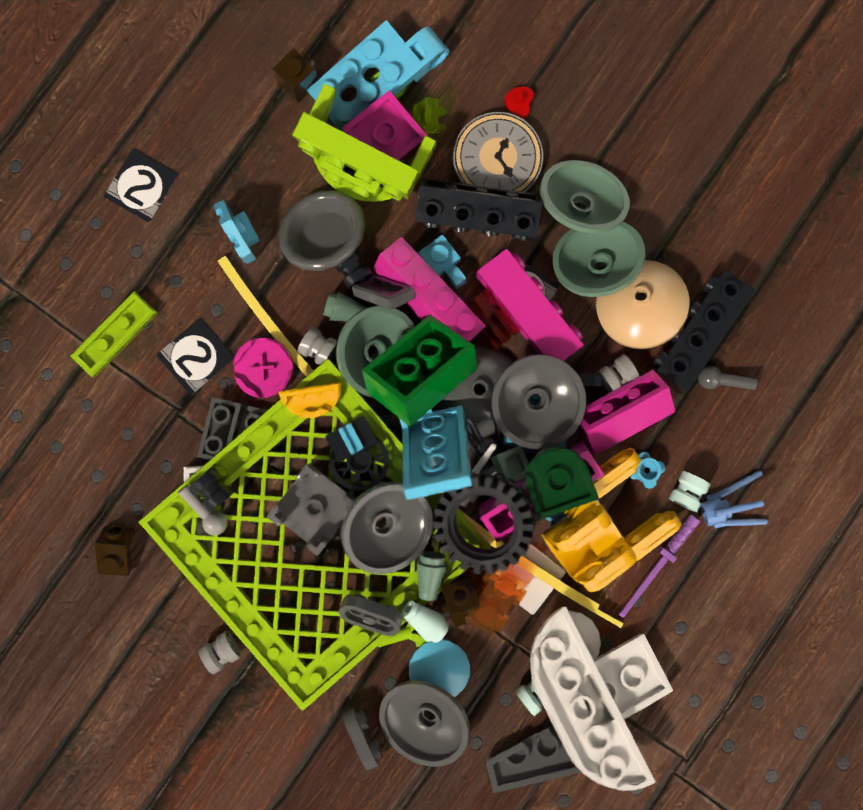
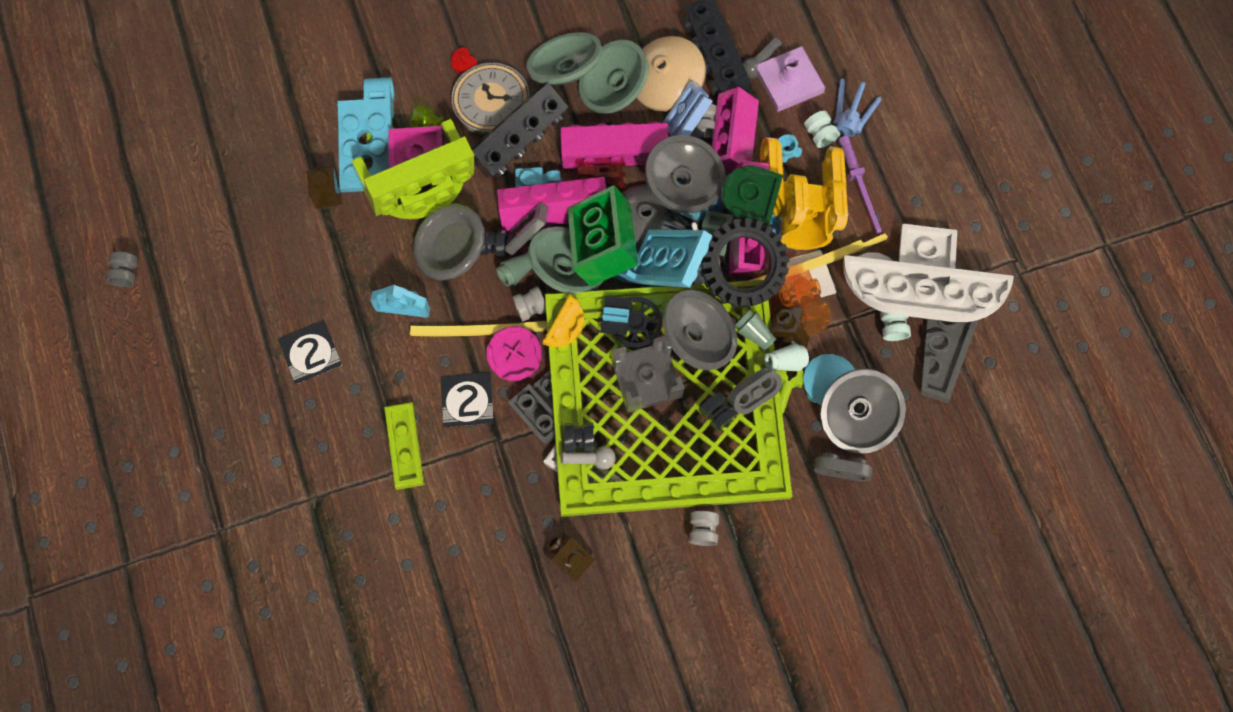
camera: 50 degrees left, 15 degrees down
(326, 596) = (723, 415): none -> black wheel
(609, 354) = (687, 110): none -> light blue plate
(724, 422) = (790, 79): none -> lavender tile

